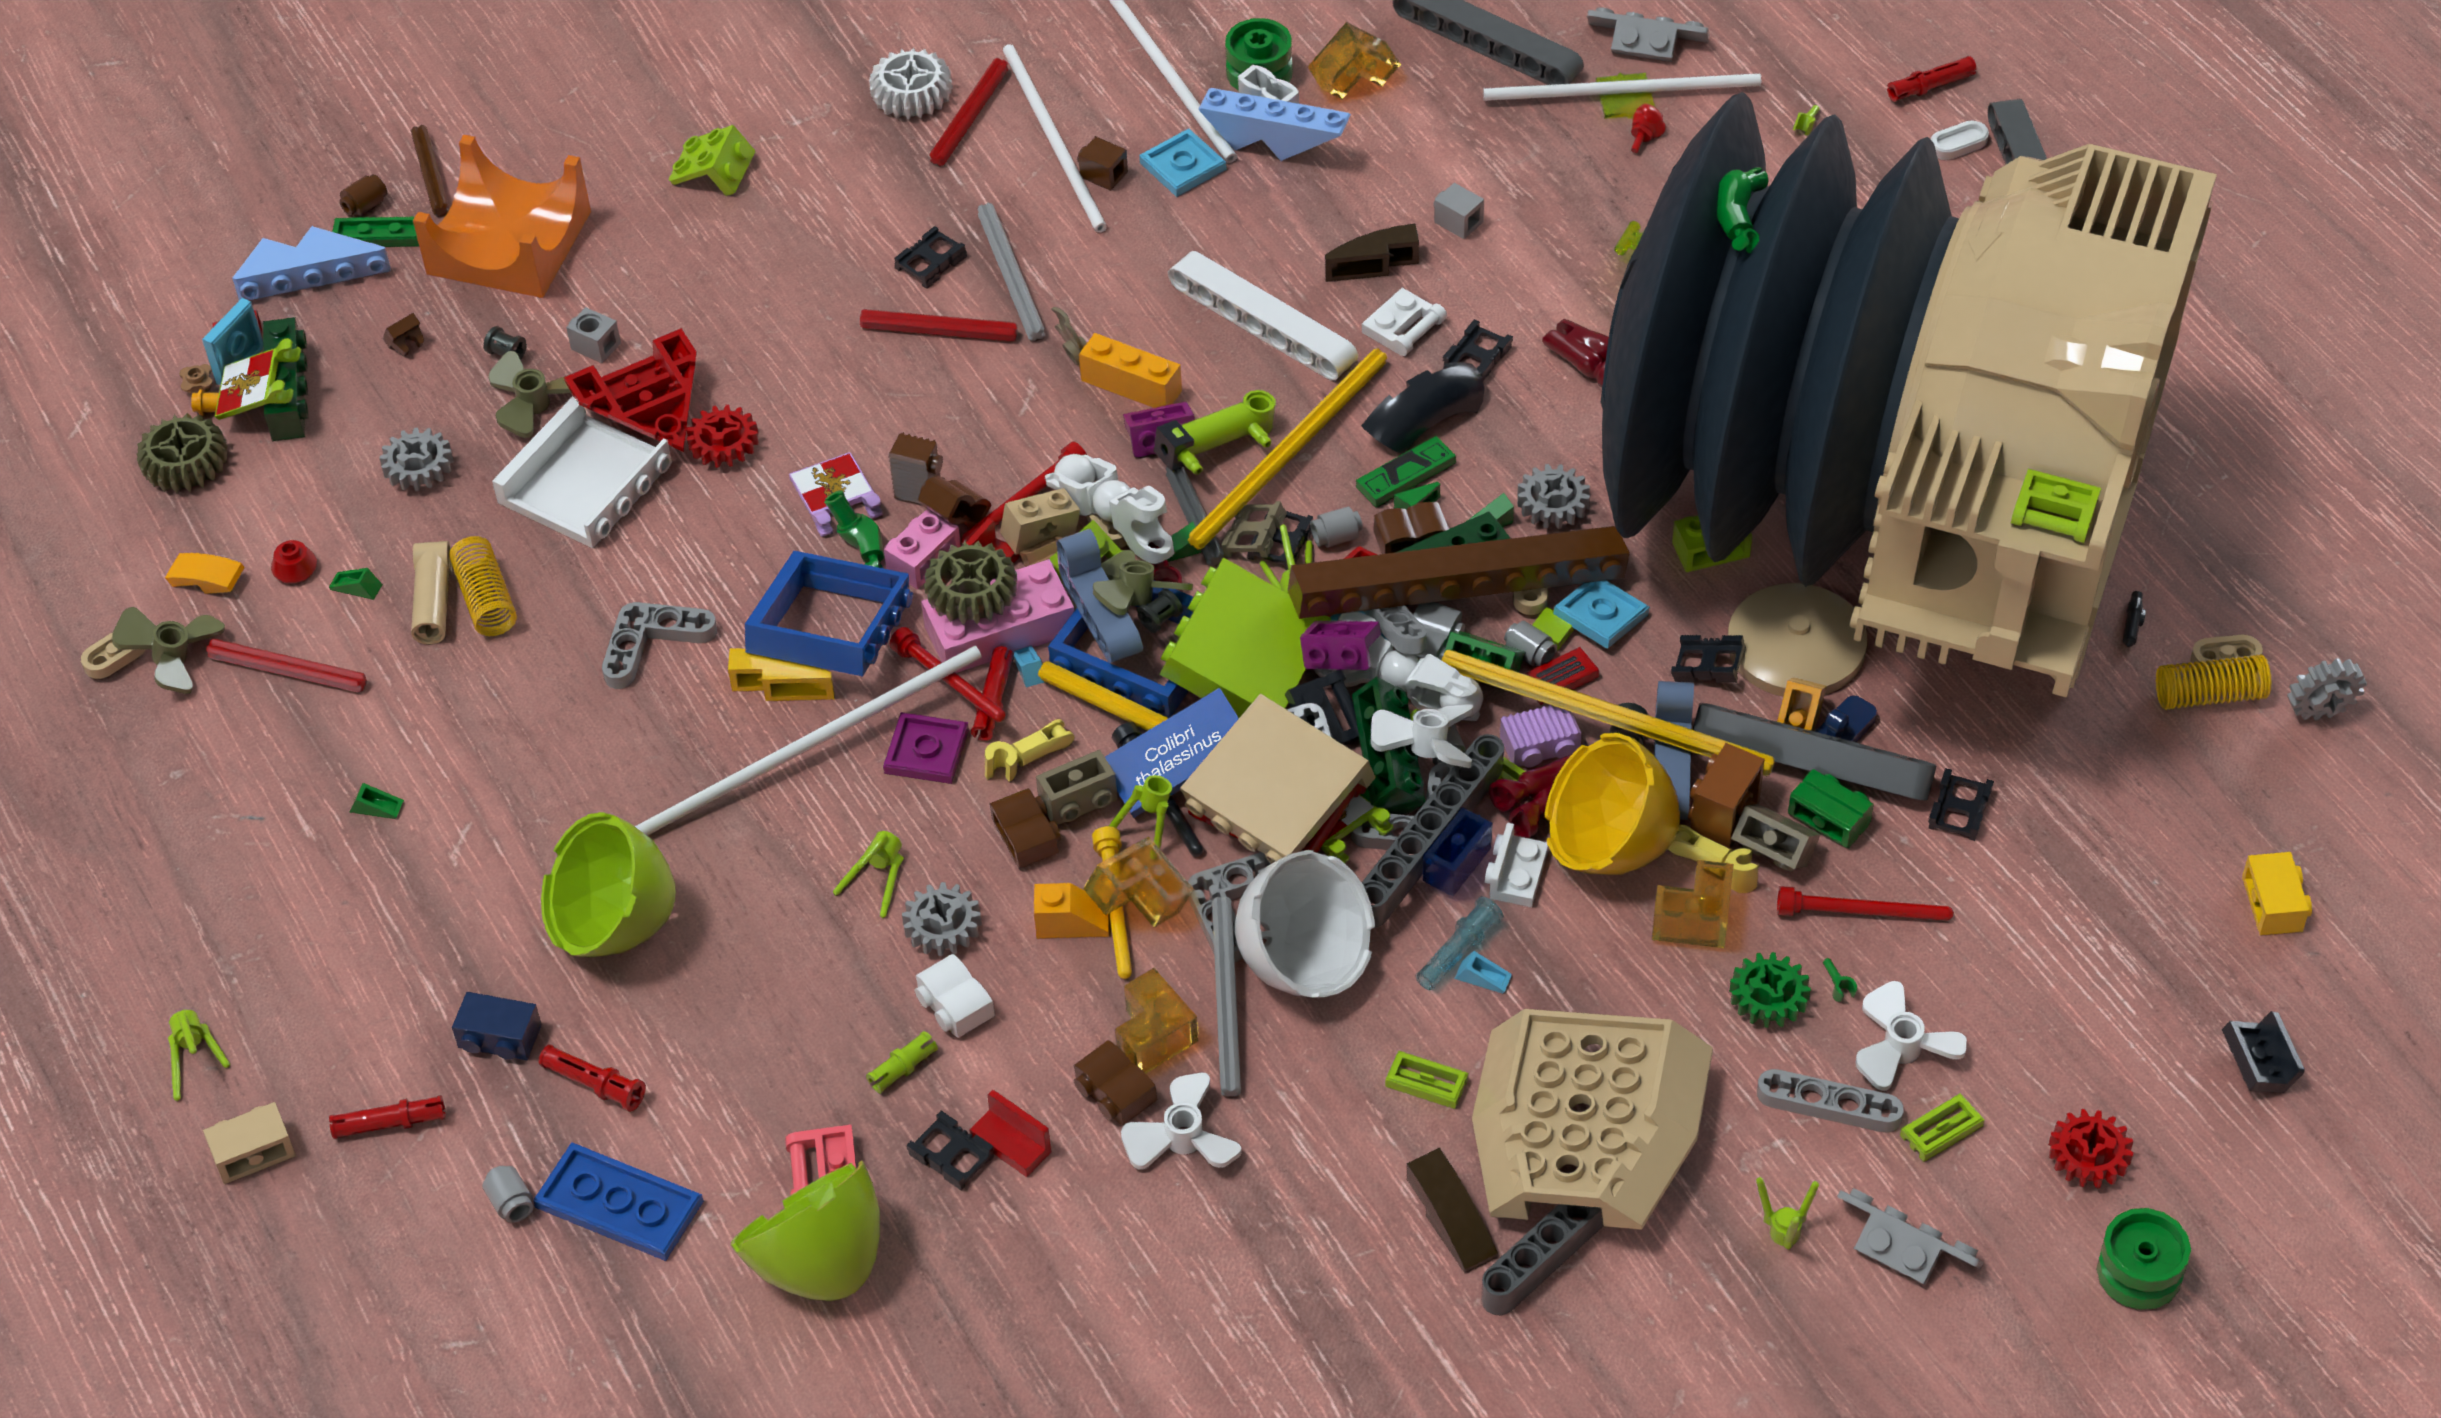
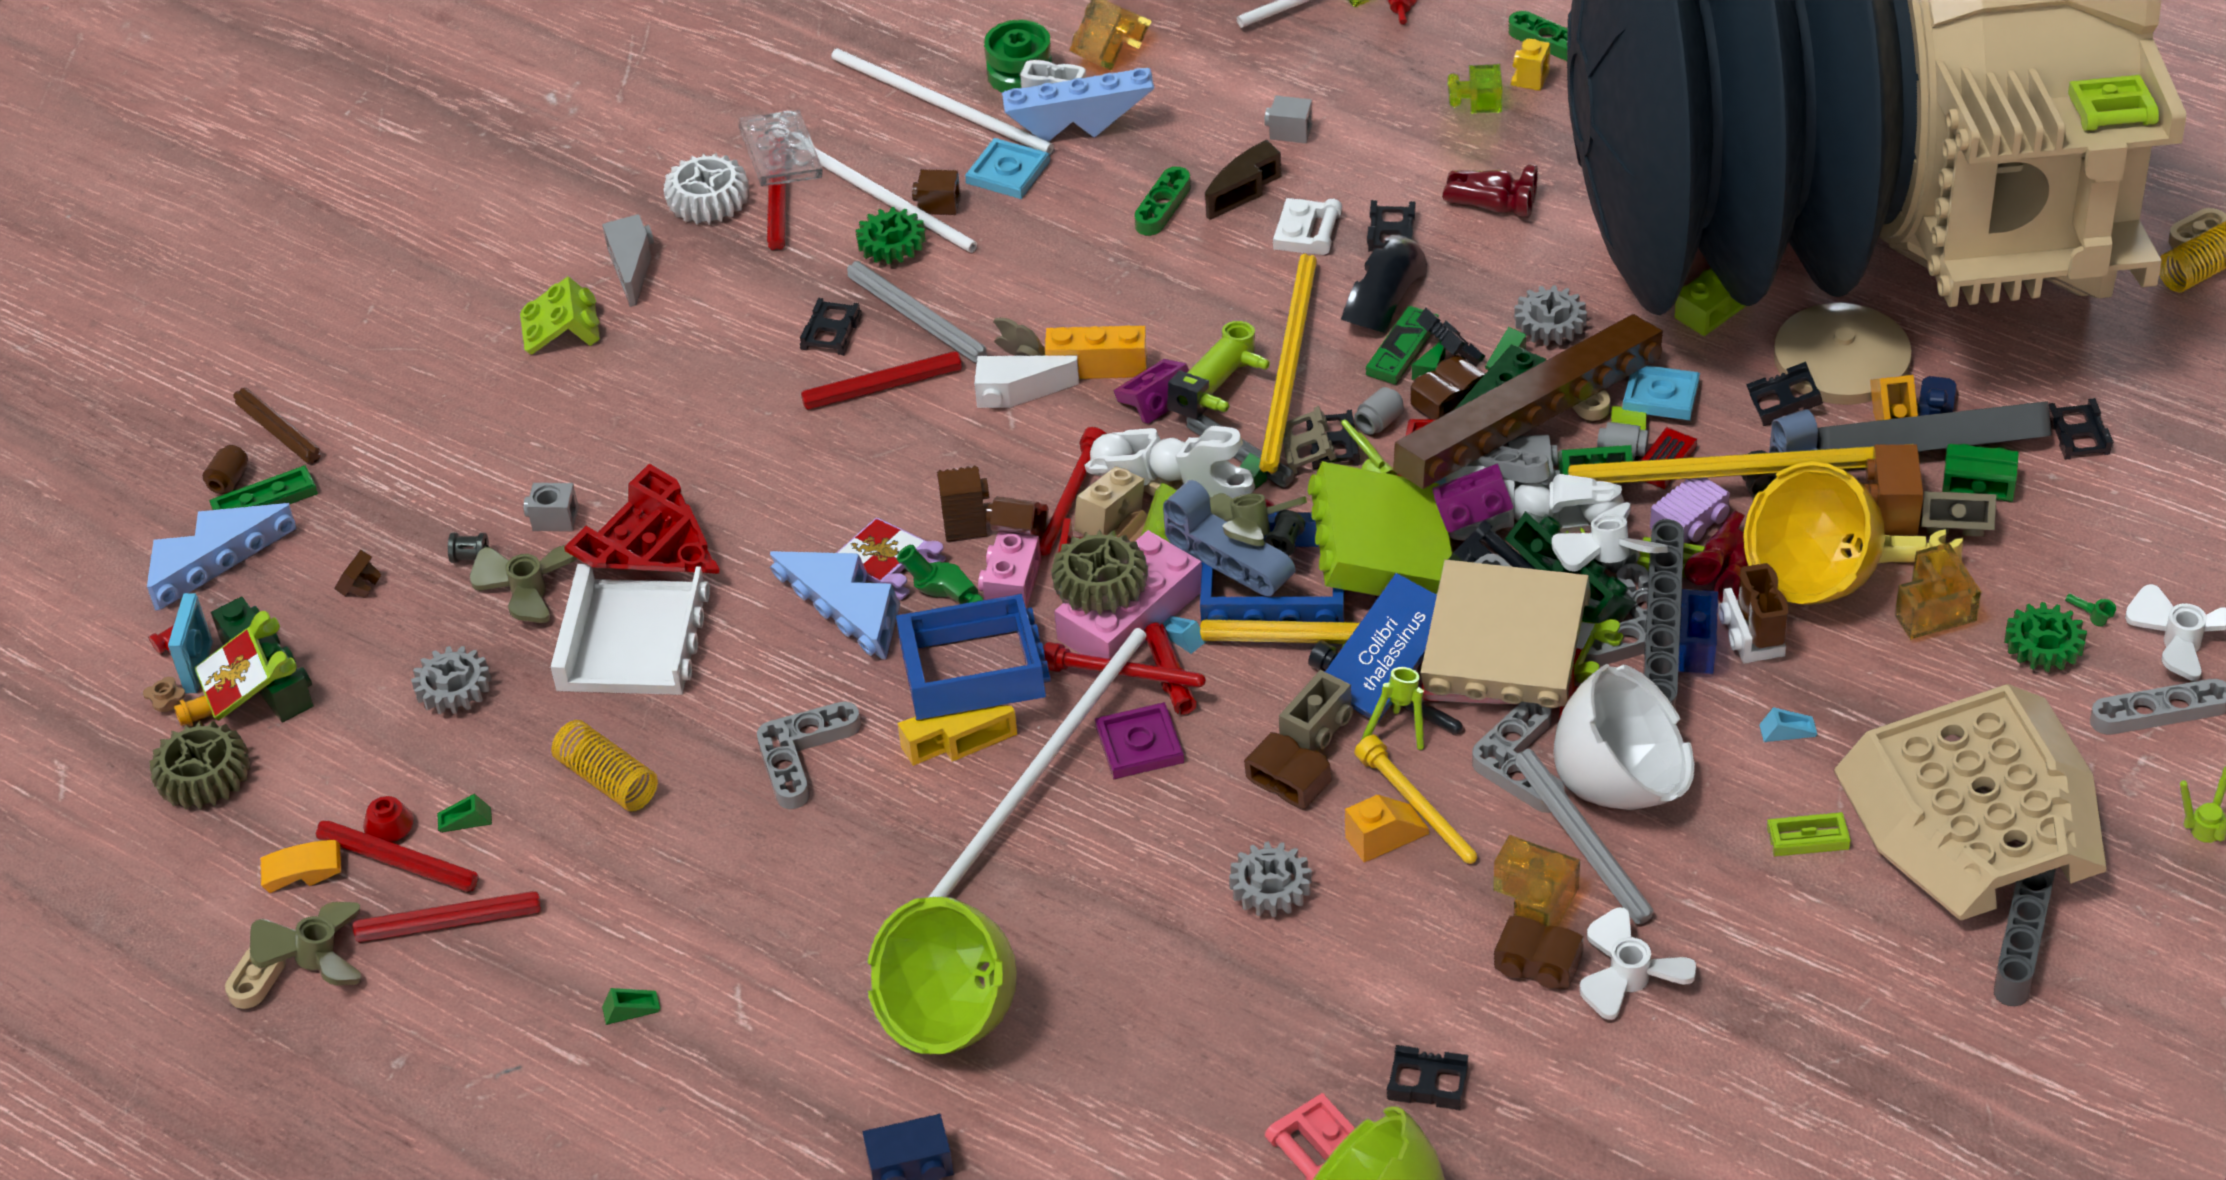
camera: 25 degrees left, 5 degrees down
(282, 596) = (398, 856): none -> red axle
(430, 591) = (539, 771): tan piece -> none
(504, 228) = (395, 447): orange piece -> none
(605, 1082) = (1055, 1158): red pin -> none
(722, 436) = (745, 546): red gear -> none
(770, 513) = (839, 590): none -> light blue slope
(806, 123) = (630, 253): none -> light grey slope
(881, 853) = (1170, 847): lime plant -> none
(901, 1062) = (1324, 1020): lime pin -> none
(954, 996) = (1333, 940): white brick -> none
(994, 68) = (780, 148): none -> clear plate
(1014, 1134) = (1480, 1032): red panel -> none
(1027, 749) = (1237, 705): light yellow piece -> none
(1037, 190) = (890, 235): none -> green gear
(1051, 372) = (1019, 379): none -> white slope
(1143, 877) = (1441, 766): clear yellow brick -> none
(1263, 315) = (1179, 264): white beam -> none
(1276, 258) = (1162, 212): none -> green beam
(1439, 485) = (1450, 337): none -> black piece
(1451, 1210) = (1919, 931): dark brown slope -> none
(1468, 933) = (1752, 696): clear light blue pin -> none
(1521, 853) = (1763, 605): none -> reddish brown brick
(1793, 901) = (2004, 559): red piece -> none

